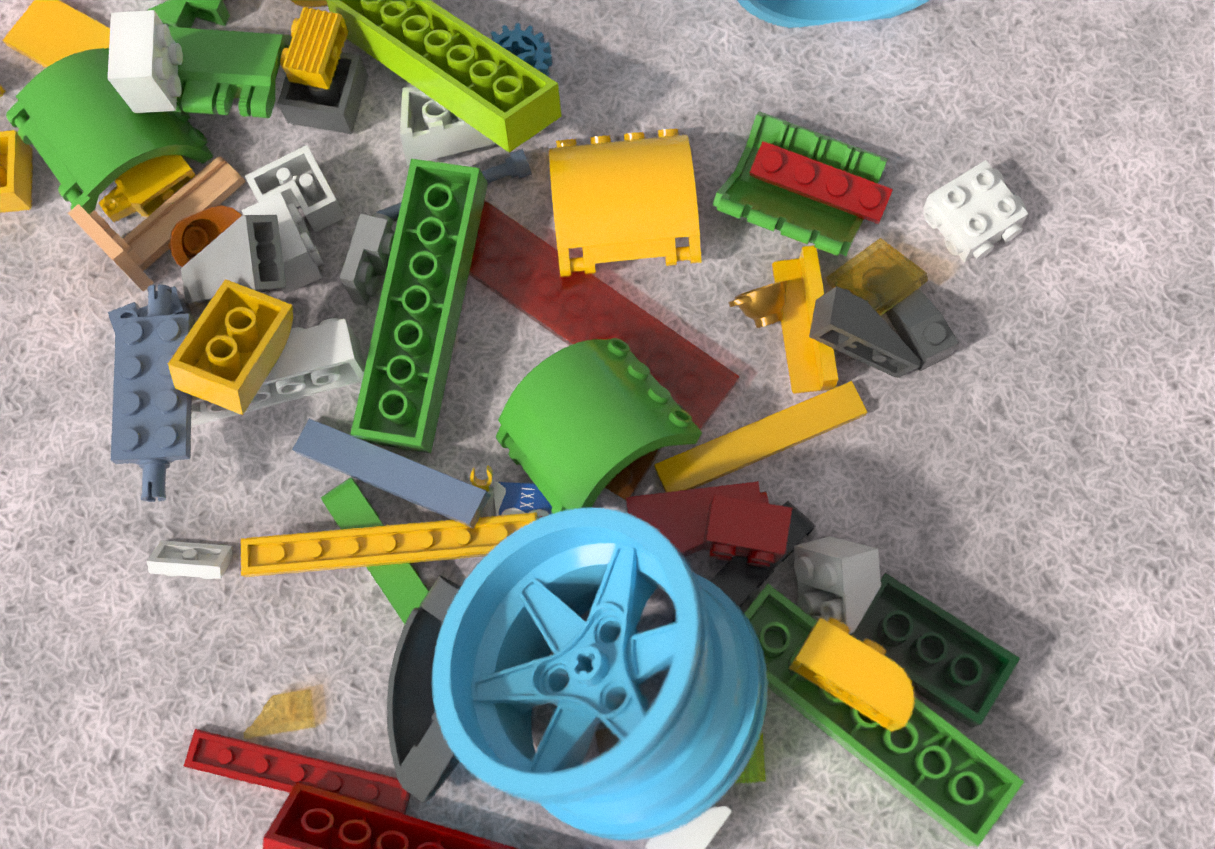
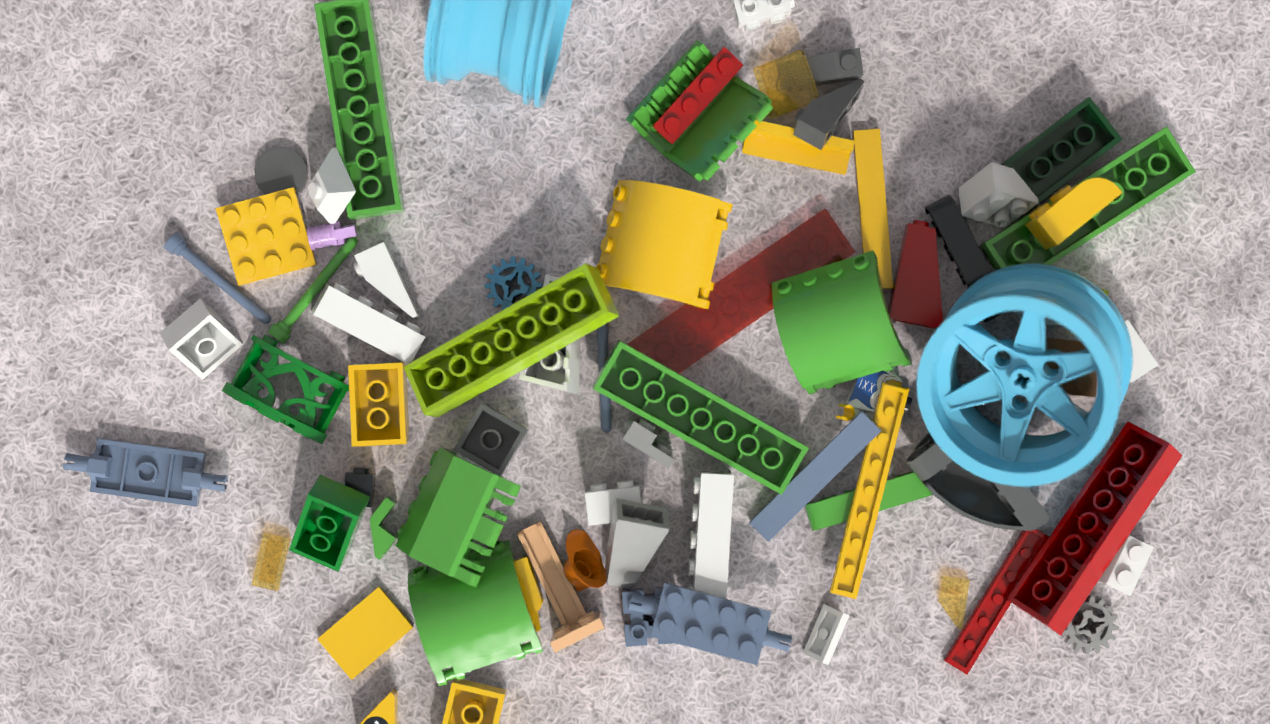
camera: 85 degrees left, 15 degrees up
(144, 61) = (463, 561): white brick -> none
(232, 347) = (706, 556): yellow brick -> none
(299, 182) = (564, 476): white brick -> none
(314, 48) = (470, 435): yellow brick -> none
(746, 530) = (950, 245): red brick -> none
(762, 303) = (774, 172): pearl gold piece -> none

